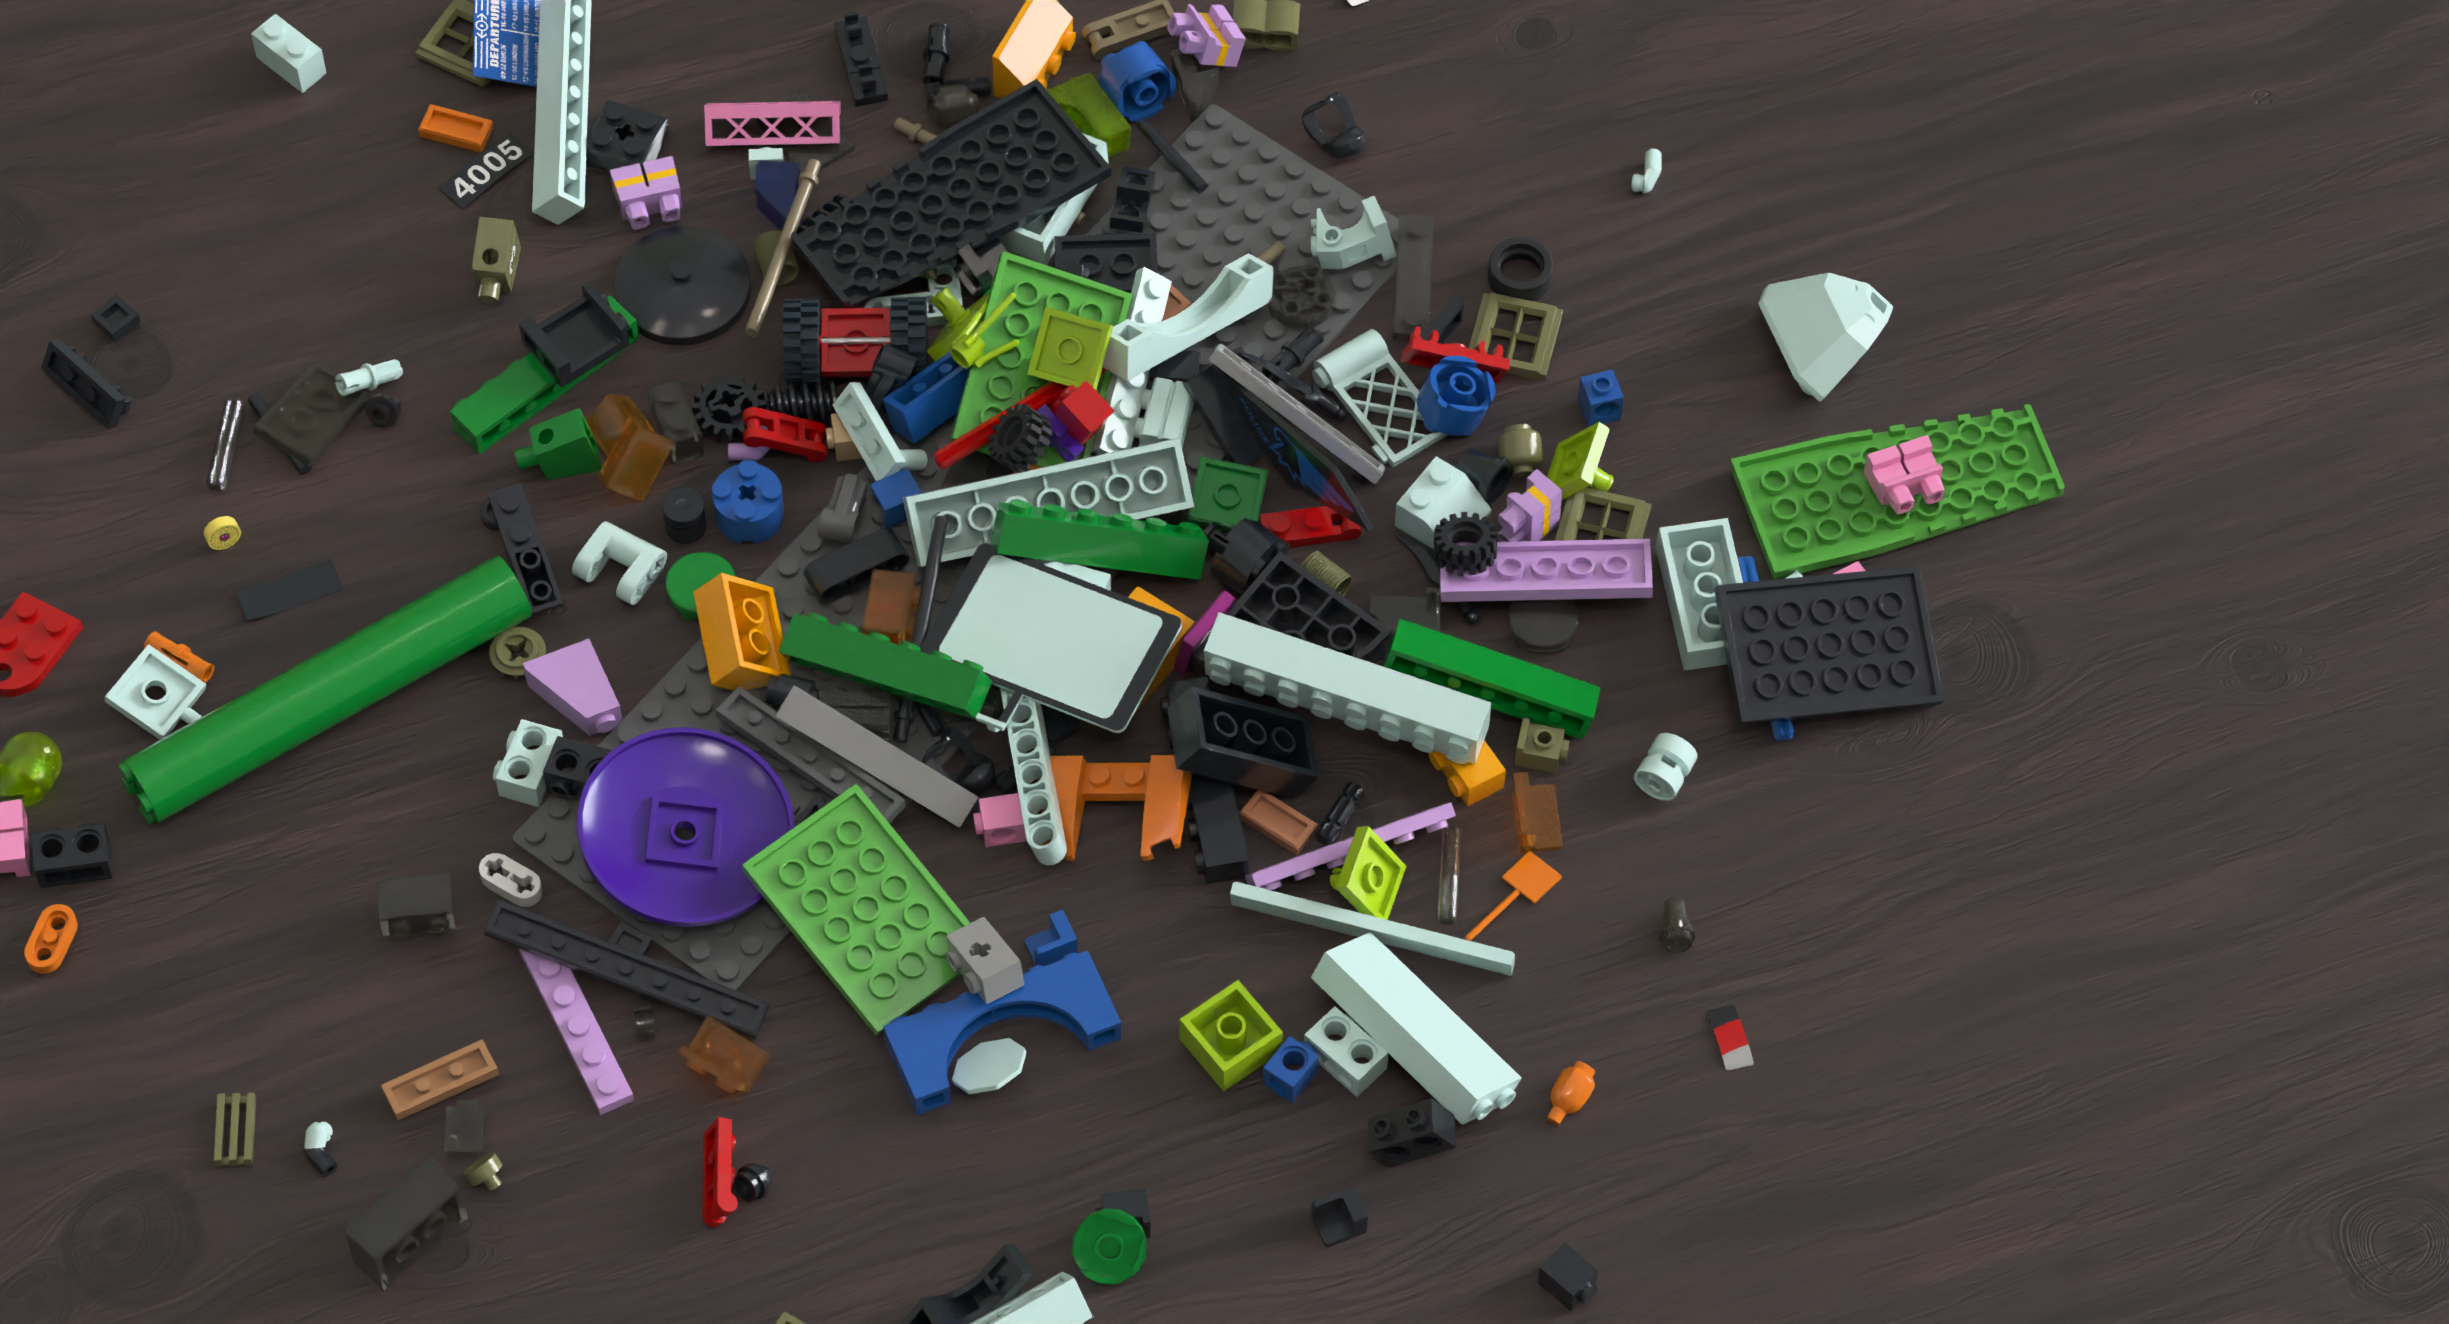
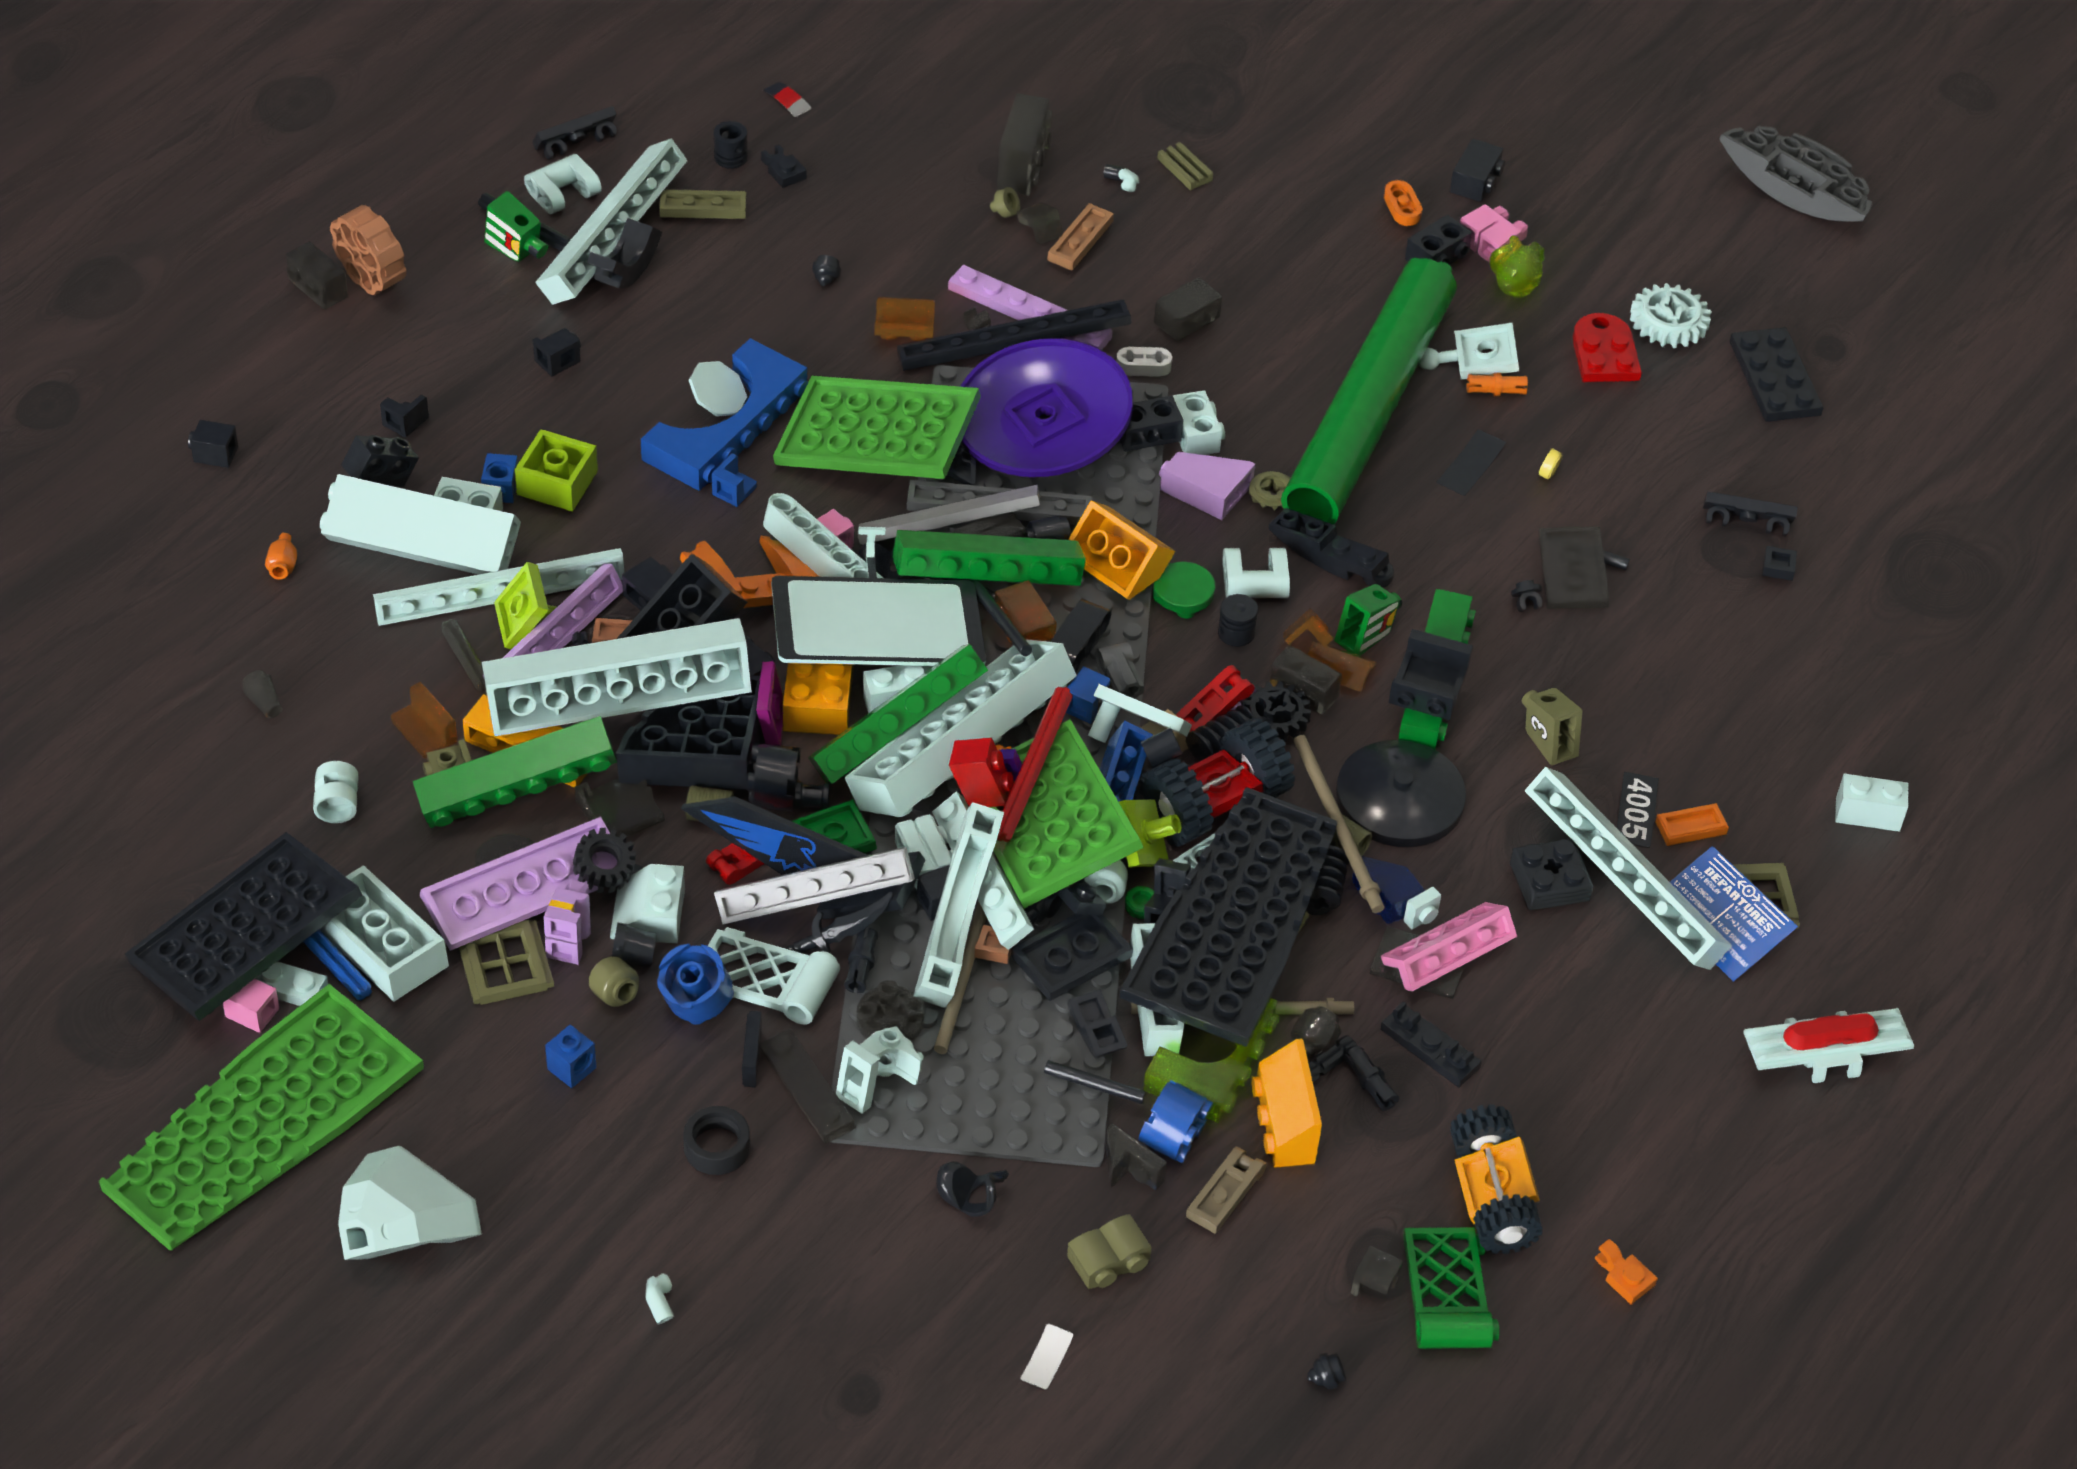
camera: 145 degrees right, 10 degrees down
(224, 445) = (1612, 524): clear smoke axle -> none
(368, 377) = (1558, 603): light aqua axle -> none
(658, 195) = (1493, 837): lavender hips -> none
(717, 1172) = (850, 260): red plate -> none
(748, 502) = (1198, 648): blue brick -> none
(969, 347) = (1103, 764): lime plant -> none
(984, 960) = (764, 422): light grey brick -> none
(1019, 437) = (1010, 721): black tyre -> none
(1069, 349) = (1021, 797): lime tile -> none
(1109, 1246) = (553, 322): green tile -> none
(1208, 35) = (1139, 1179): lavender hips -> none
(1429, 353) = (716, 1015): red plate -> none
(1528, 877) = (397, 682): orange piece -> none
(1544, 342) = (656, 1096): olive piece -> none
(1577, 462) = (553, 980): lime tile -> none
(1730, 1037) = (180, 651): sticker -> none
(1904, 473) = (251, 1103): bright pink hips -> none

